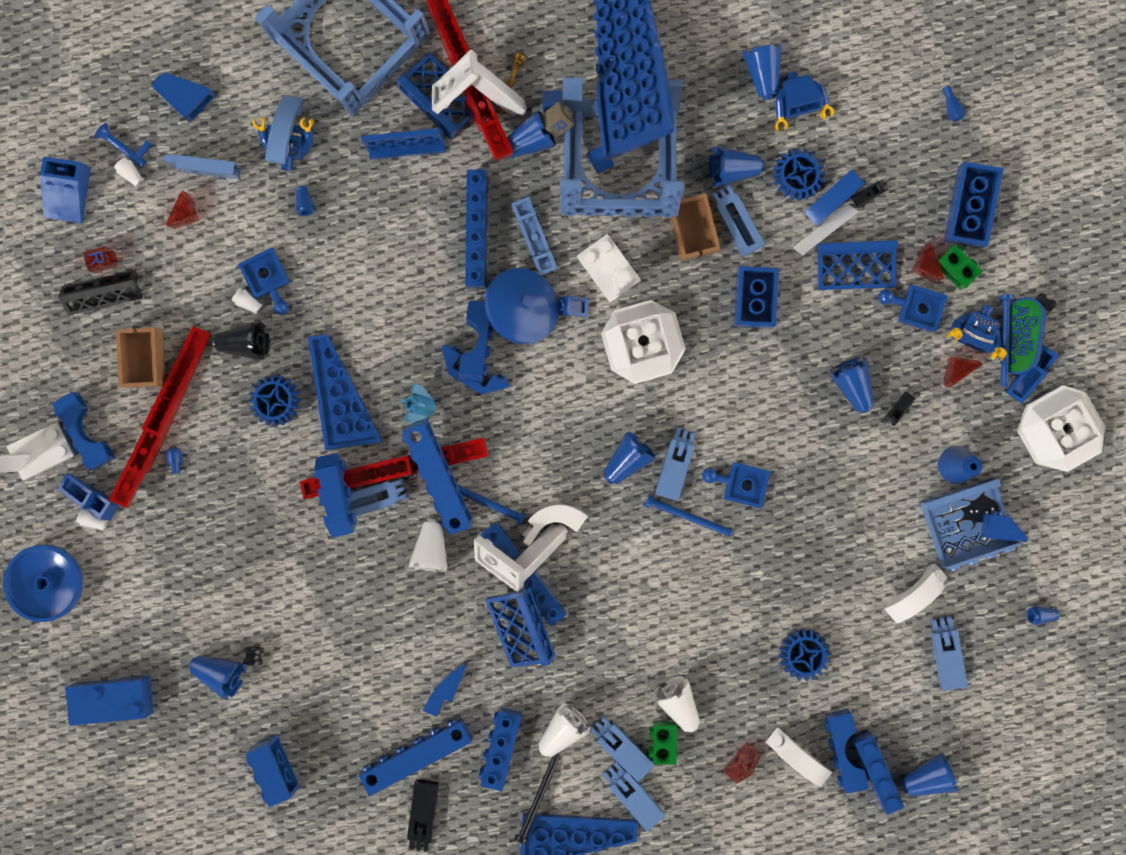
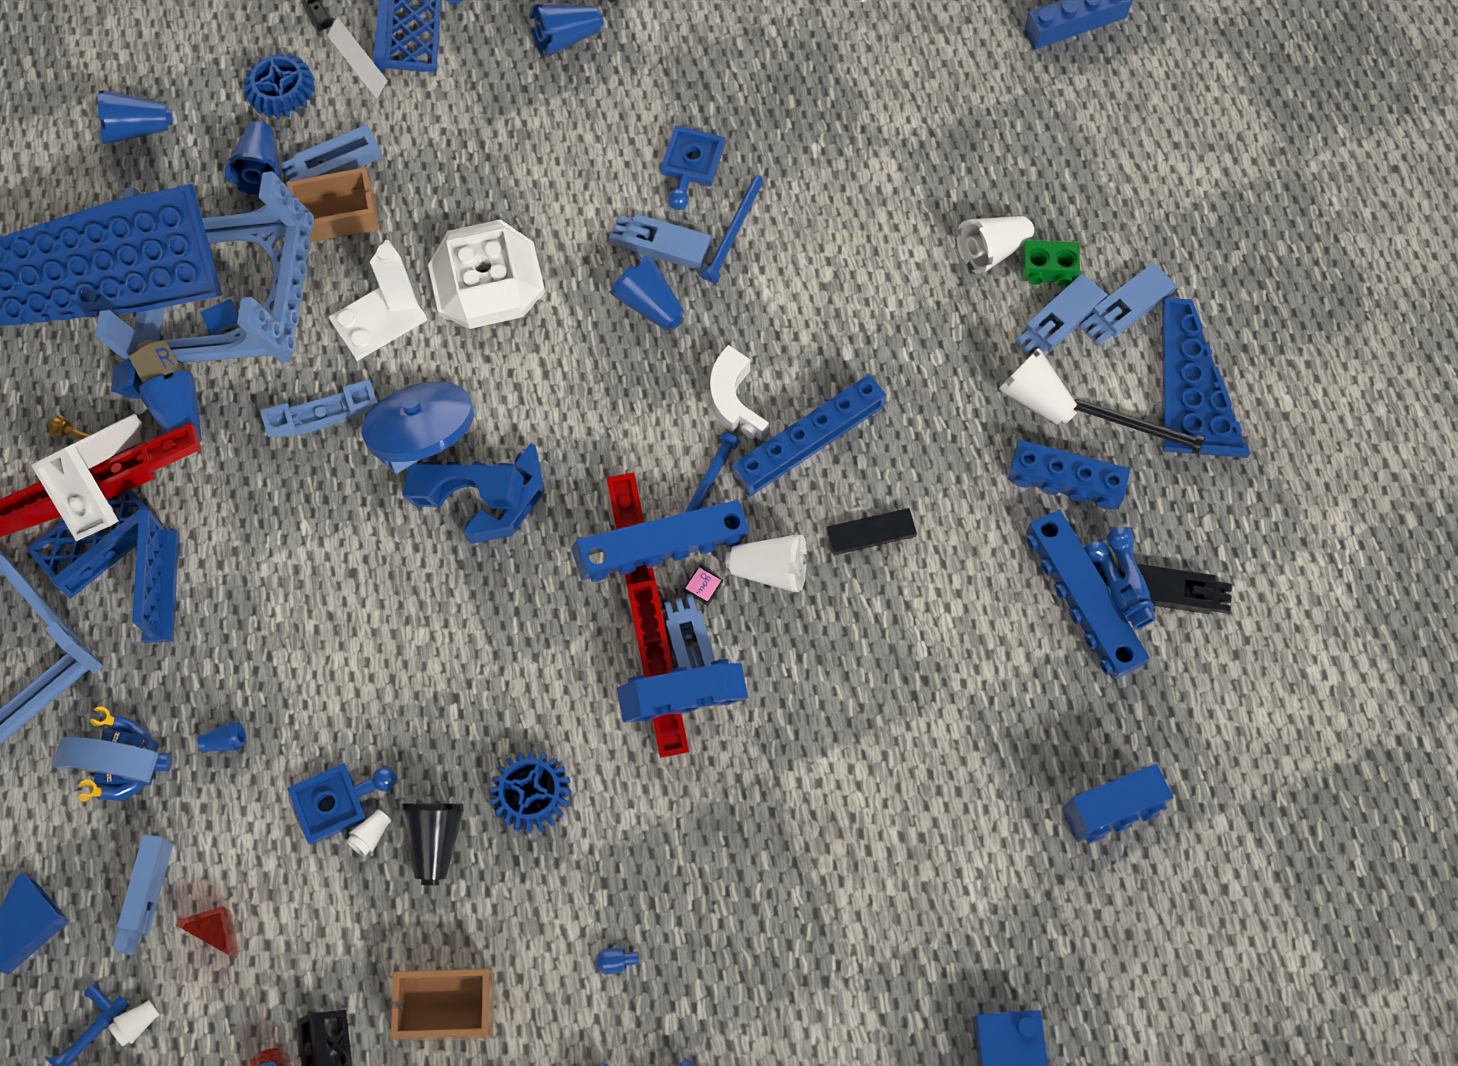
camera: 90 degrees left, 20 degrees down
(160, 418) = (546, 978): red slope -> none
(218, 674) = (965, 894): blue cone -> none
(253, 655) = (936, 837): black wheel -> none
(341, 409) = (543, 693): blue wing -> none
(412, 787) = (1131, 592): none -> blue piece
(417, 504) = (703, 585): none -> bright pink tile
(420, 404) = (551, 570): dark azure brick -> none
(445, 690) = (982, 548): blue slope -> none
(458, 615) = (871, 531): none -> black tile
(476, 229) = (298, 486): blue piece -> none
(517, 571) = (795, 445): white piece -> none
(533, 626) = (884, 413): blue fence -> none
(573, 306) = (426, 362): blue bracket -> none
(742, 764) = (1077, 170): clear red slope -> none
(756, 297) = (437, 134): blue brick -> none
(798, 758) = (1067, 90): white arch -> none
(800, 97) = (176, 78): blue torso -> none
(811, 653) = (919, 100): blue gear -> none
(834, 197) = (315, 44): blue slope -> none
(851, 775) = (1022, 55): blue arch -> none

